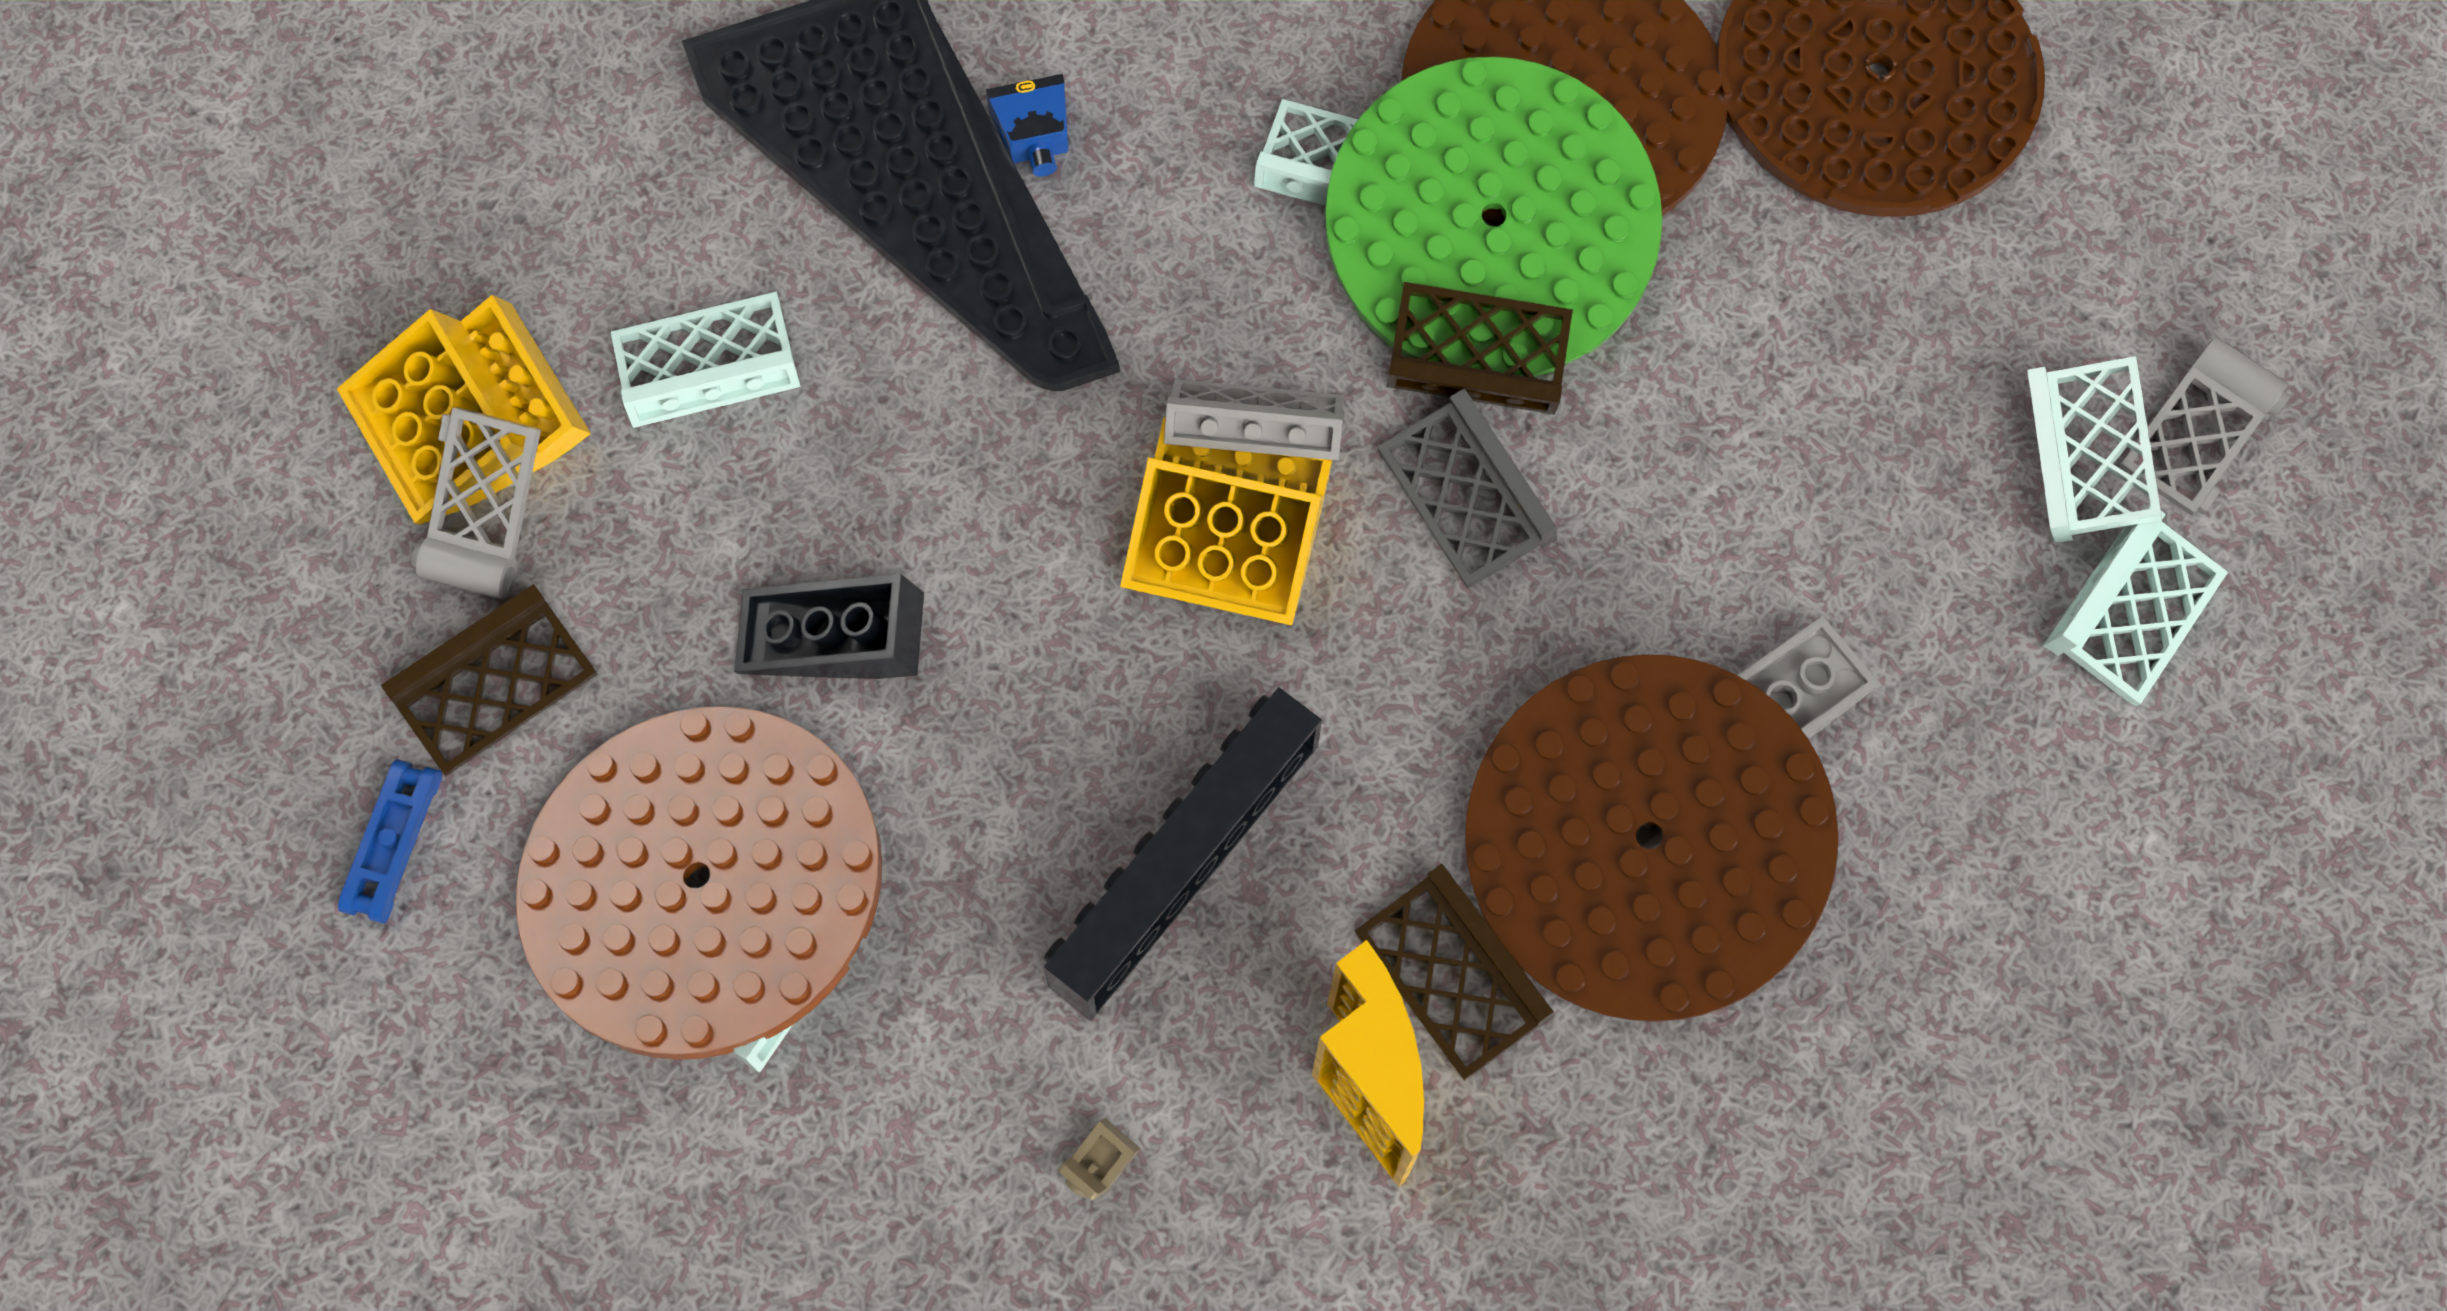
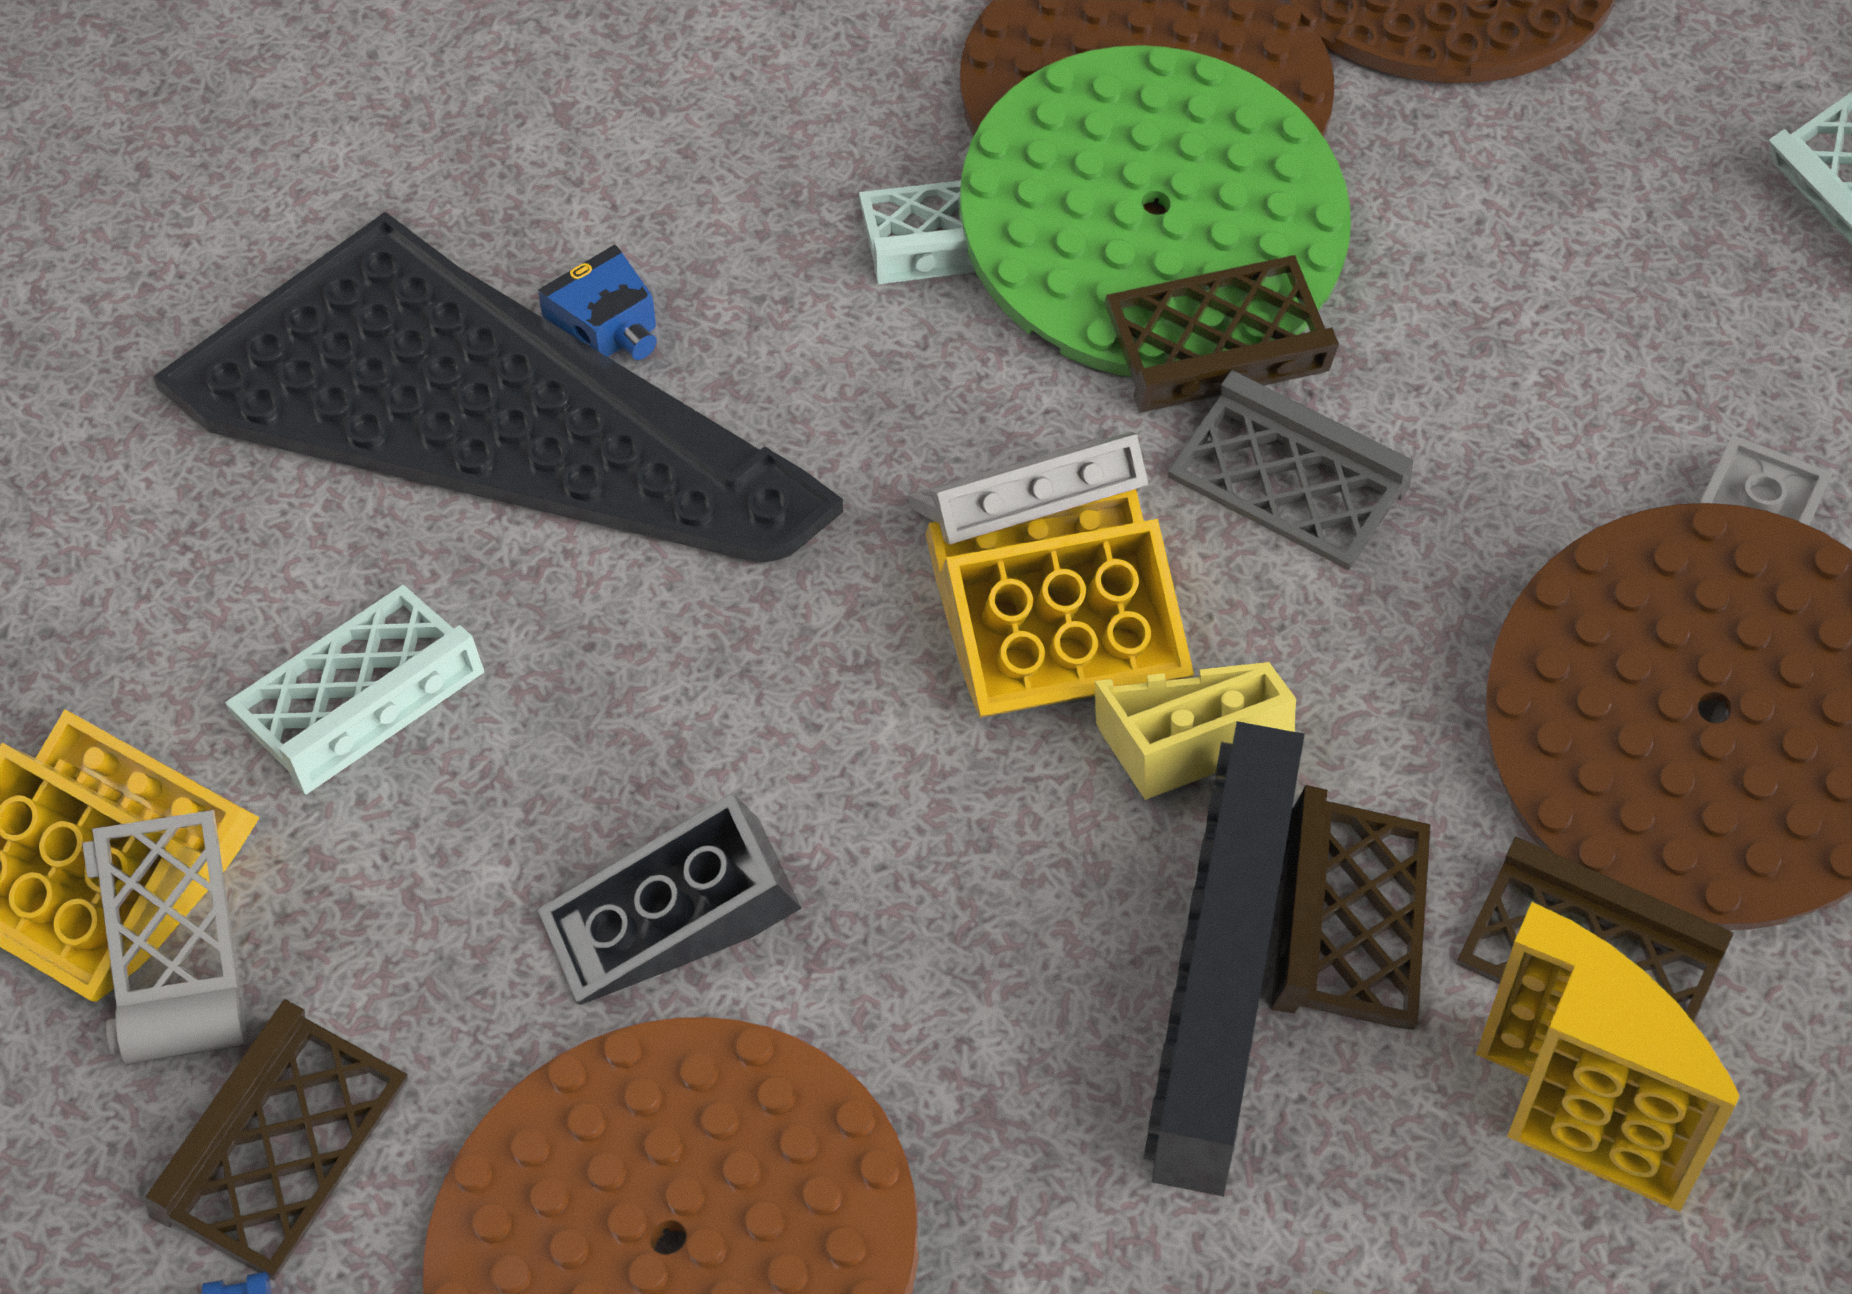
camera: 25 degrees left, 15 degrees down
(1255, 659) = (1175, 727): none -> light yellow wedge
(1269, 837) = (1303, 913): none -> dark brown fence

